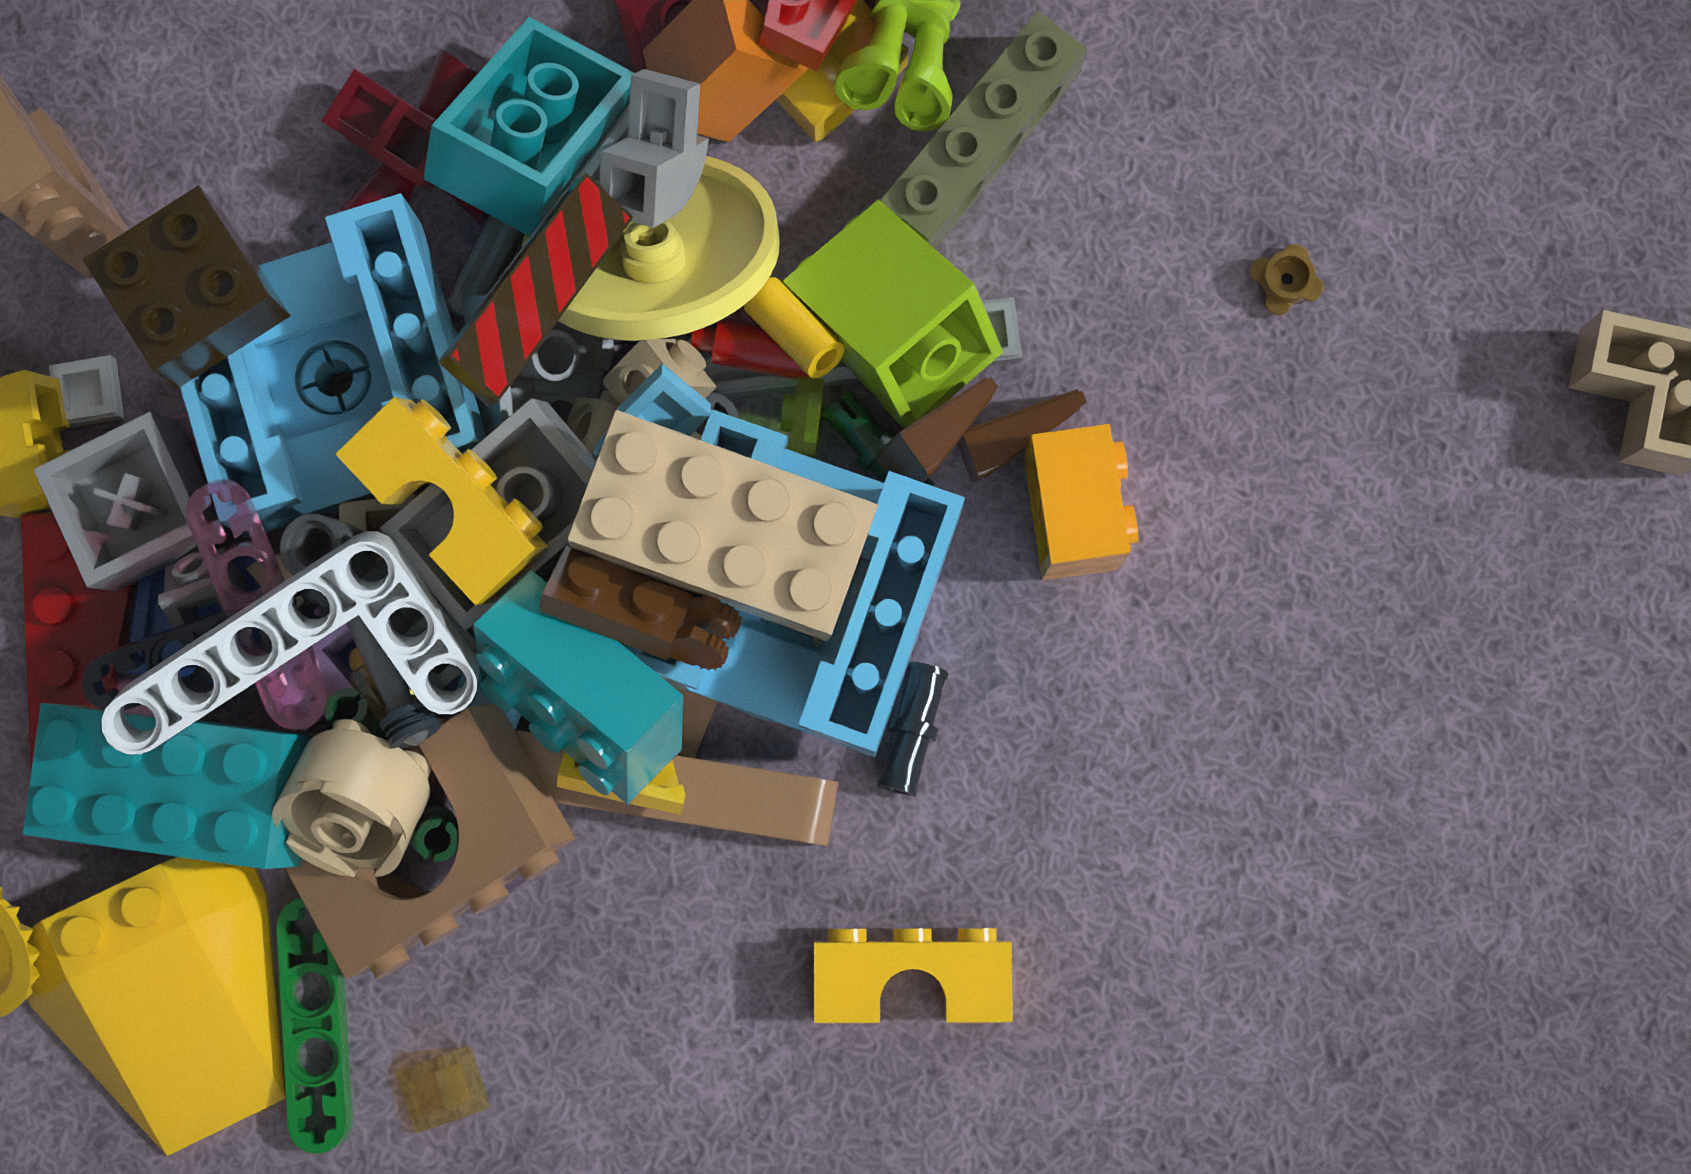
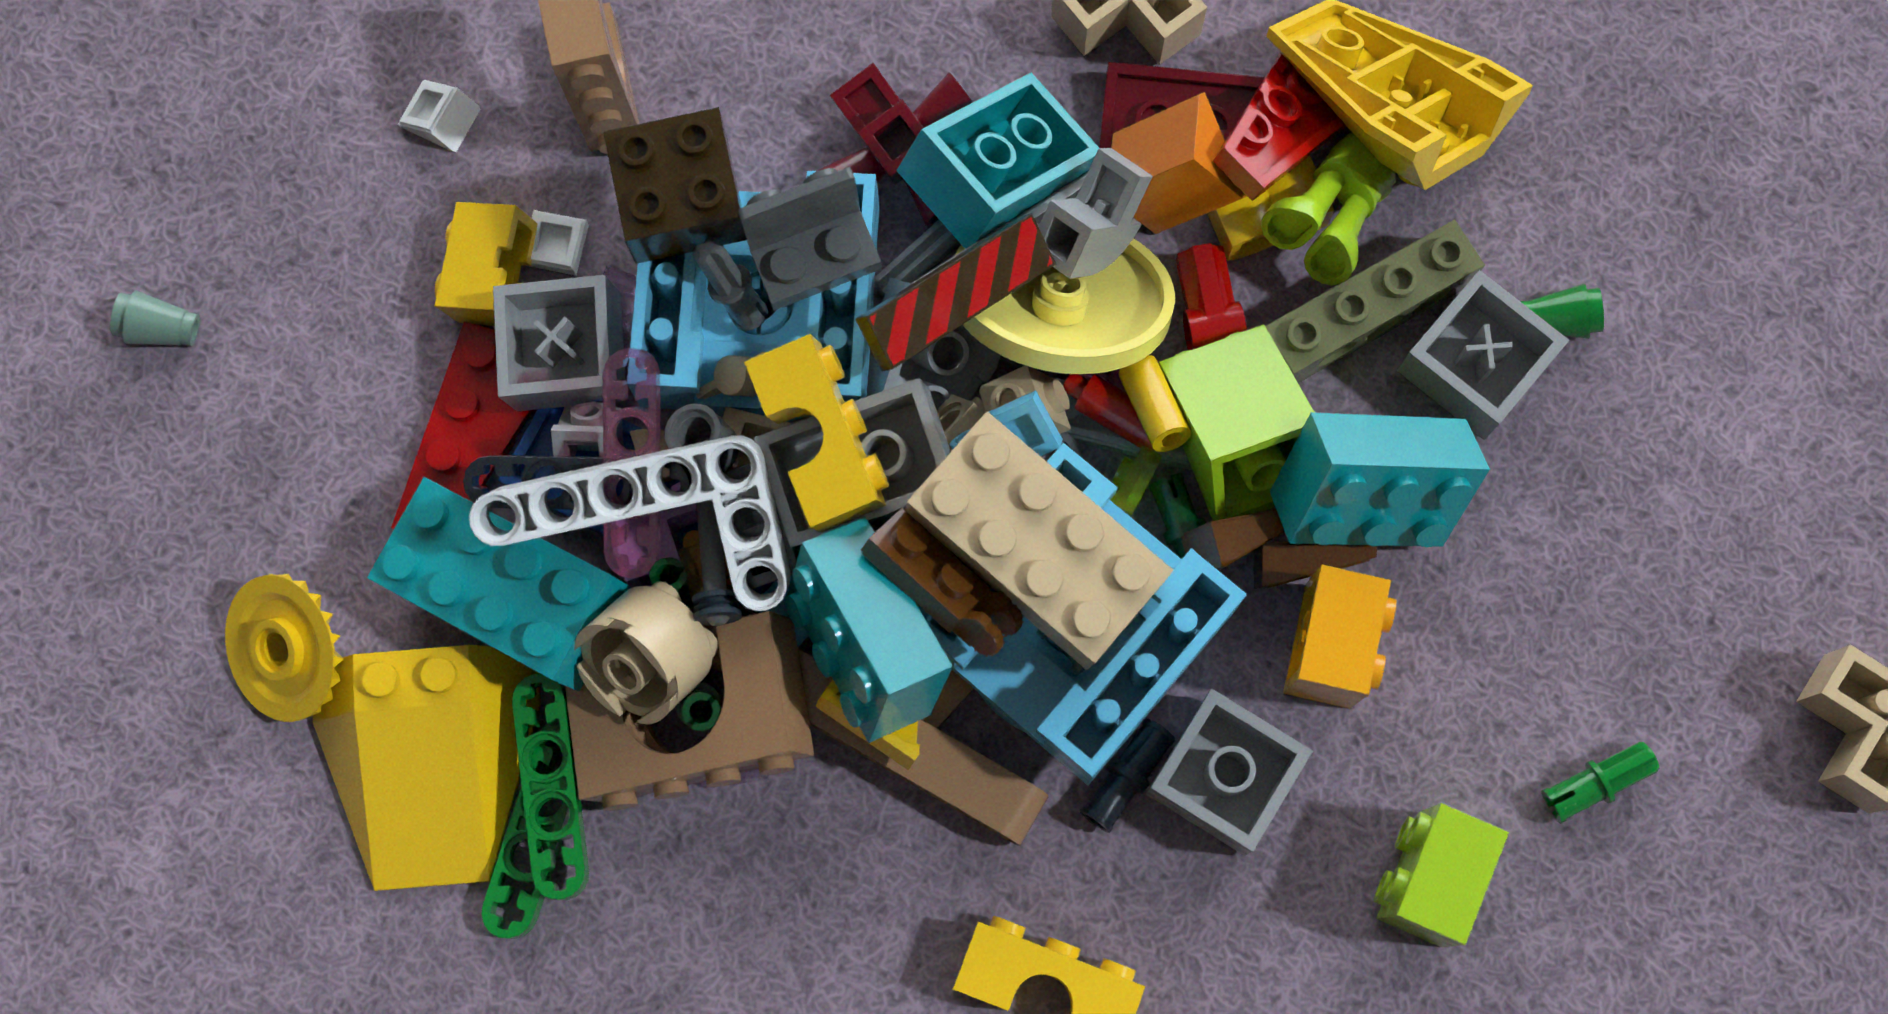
camera: 20 degrees right, 5 degrees down
(289, 372) = (730, 284): none -> dark grey axle
(301, 982) = (541, 788): none -> green beam
(328, 473) = (730, 378): none -> tan piece
(353, 290) = (809, 237): none -> dark grey bracket
(442, 1089) = (620, 924): clear yellow slope -> none
(809, 189) = (1207, 296): none -> red piece
(1016, 686) = (1229, 772): none -> light grey brick
(1058, 321) = (1378, 480): none -> teal brick
(1119, 145) = (1482, 354): none -> light grey brick
(1188, 68) = (1571, 311): none -> green cone
(1271, 709) = (1440, 875): none -> lime brick
(1291, 261) = (1597, 509): pearl gold plate -> none
(1400, 546) = (1601, 781): none -> green axle

